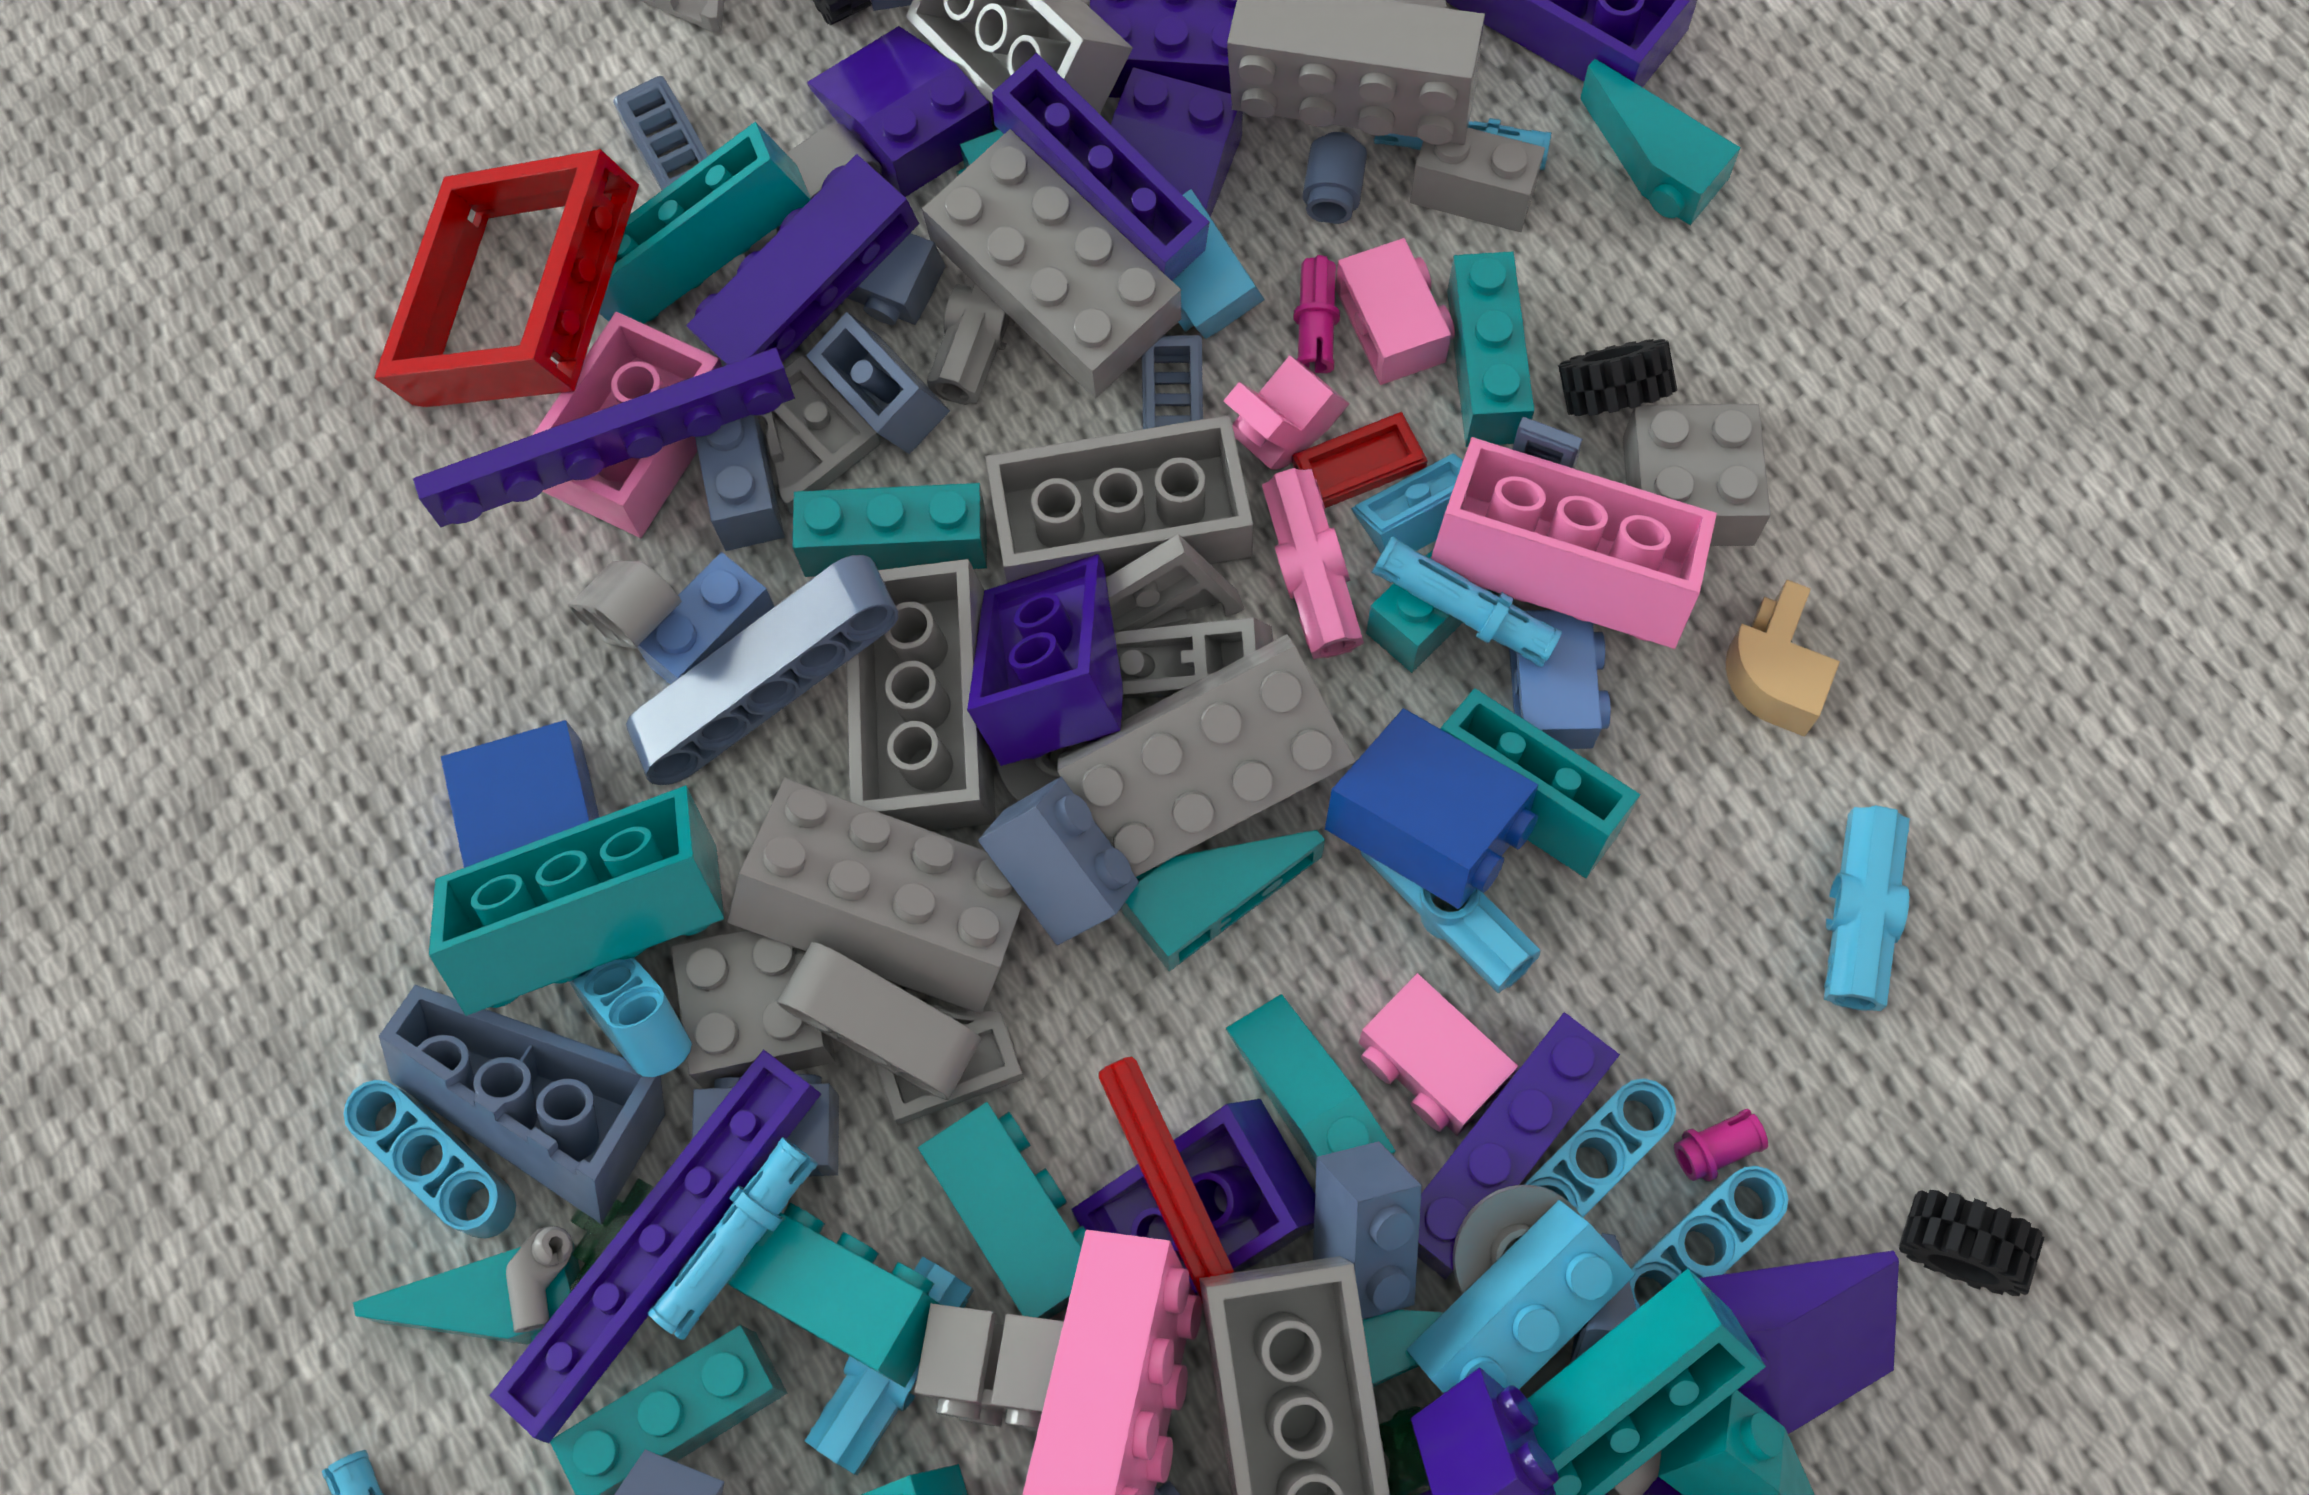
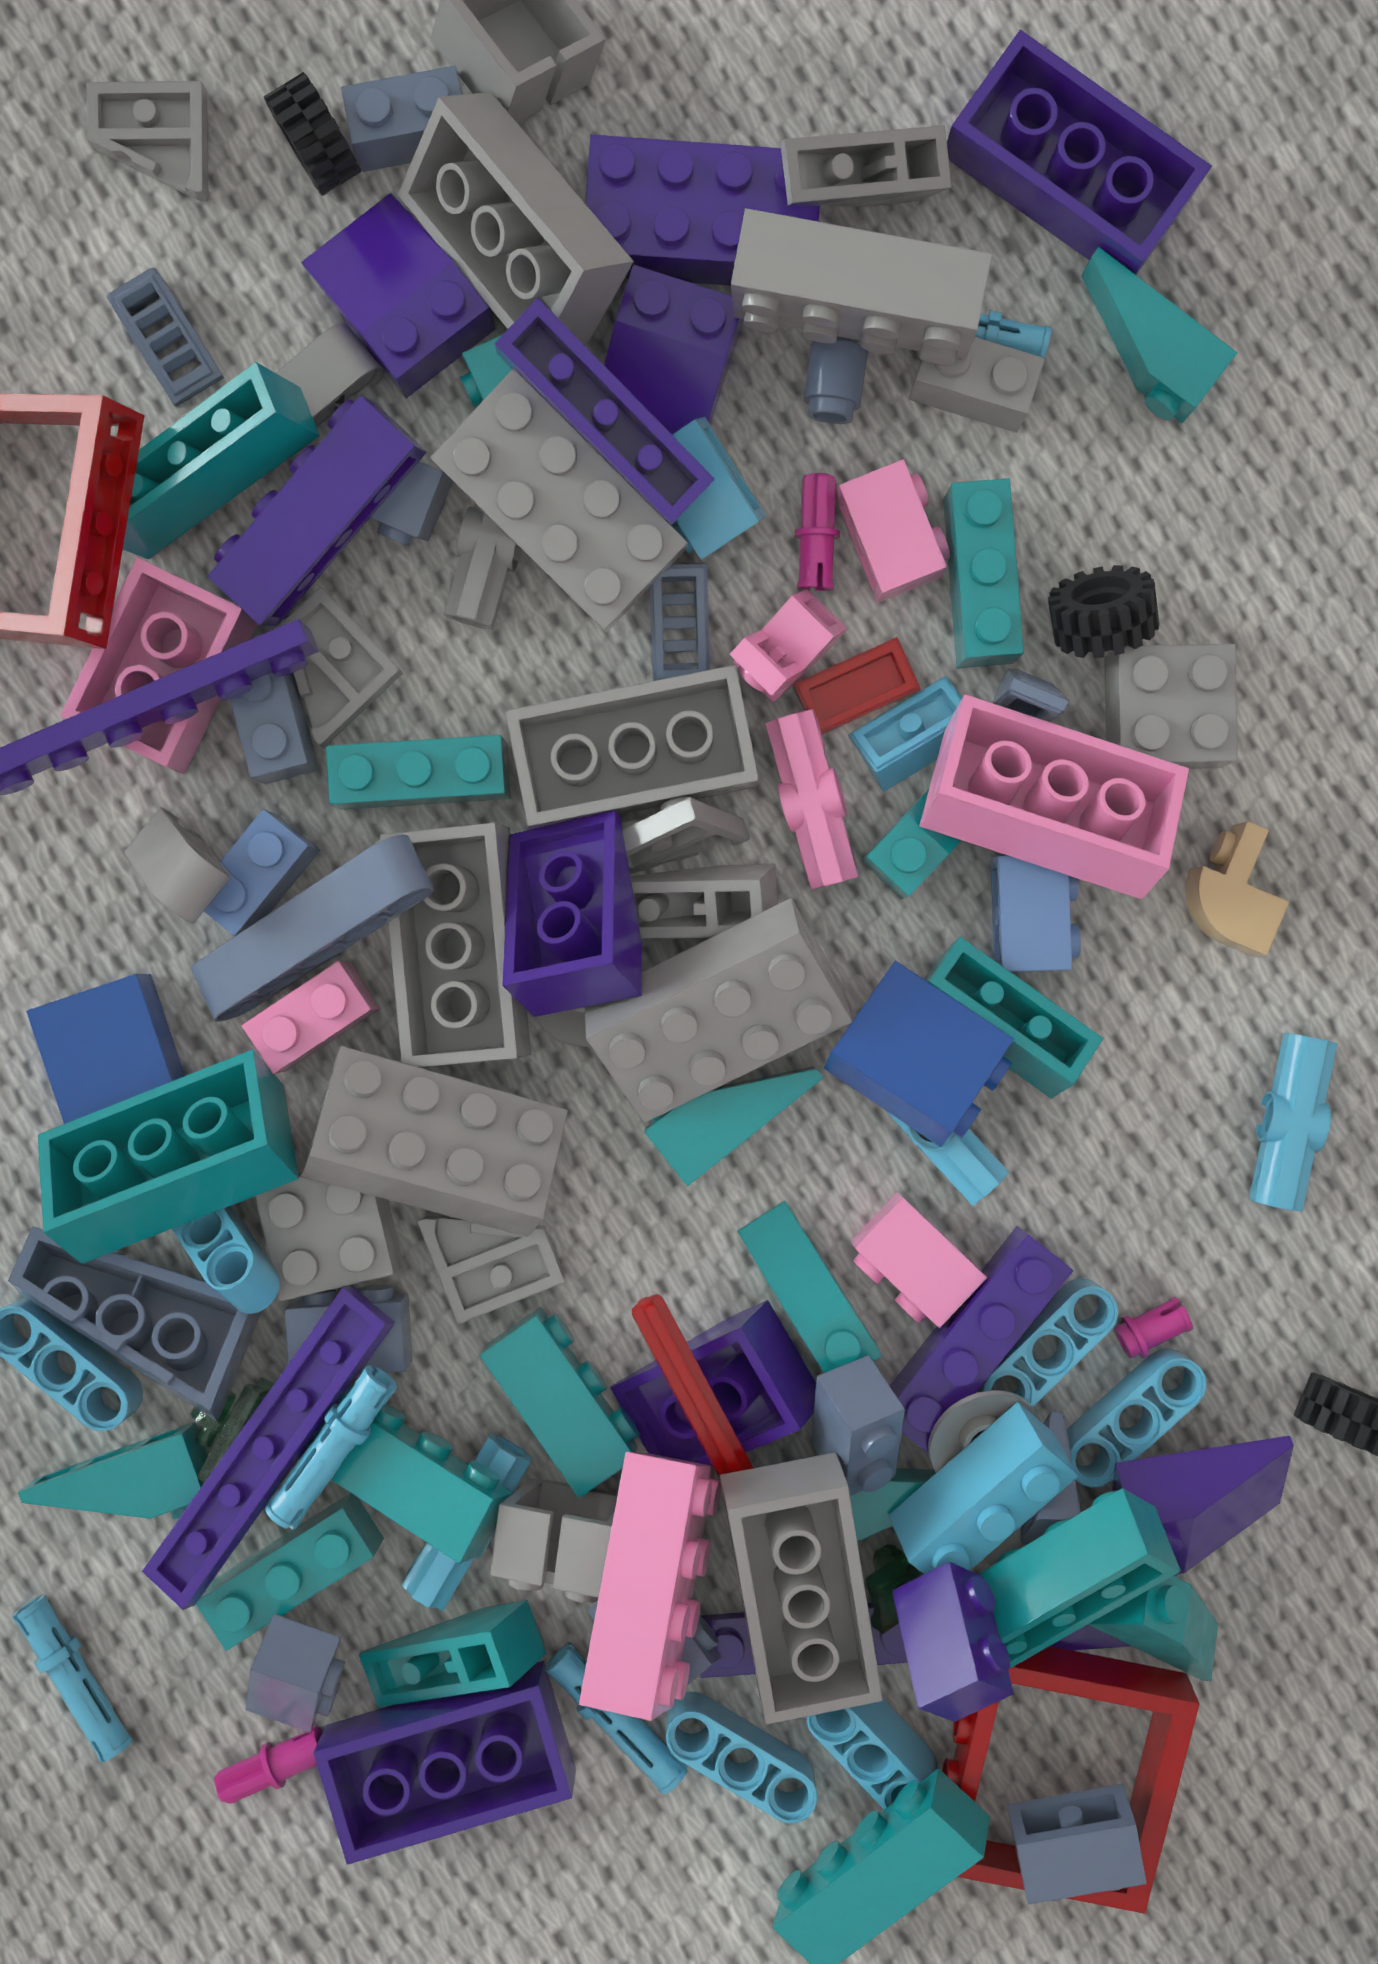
camera: 10 degrees left, 20 degrees up
(532, 1272) = (163, 1472): light grey arm -> none
(742, 775) = (311, 1017): none -> bright pink brick
(877, 383) = (396, 620): sand blue brick -> none
(879, 1020) = (439, 1256): light grey beam -> none
(1059, 861) = (590, 1114): sand blue brick -> none
(1478, 608) = (974, 870): medium azure pin -> none

